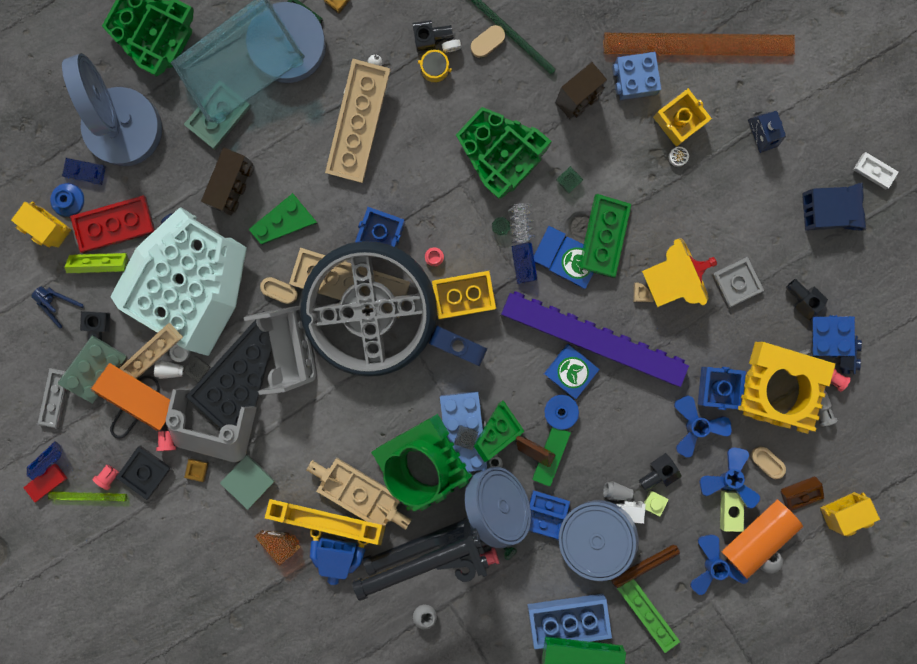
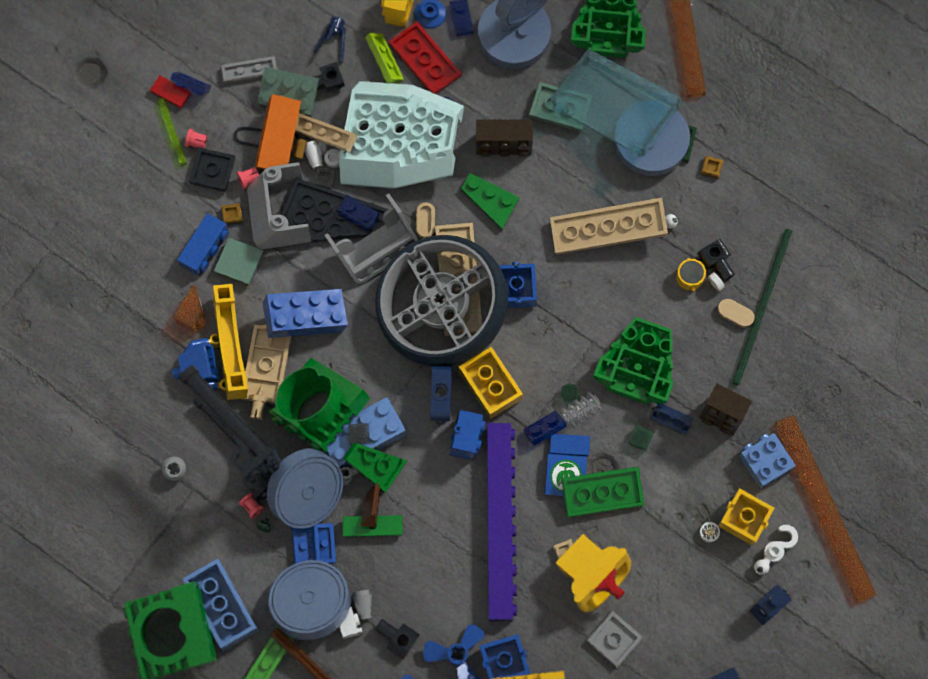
camera: 70 degrees right, 15 degrees down
(157, 382) = (298, 149): none -> pearl gold tile
(217, 509) = (203, 245): none -> blue brick
(245, 351) = (358, 212): none -> clear blue plate
(326, 441) = (304, 313): none -> brick
(434, 256) = (515, 344): coral plate -> none
(506, 337) = (466, 434): none -> blue brick
(563, 143) = (672, 418): none -> dark blue hinge
(570, 414) = (421, 509): blue piece -> none
(571, 371) = (460, 513): slope -> none
(655, 503) = (366, 645): yellowish green plate -> none
(719, 106) = (775, 550): none -> white piece

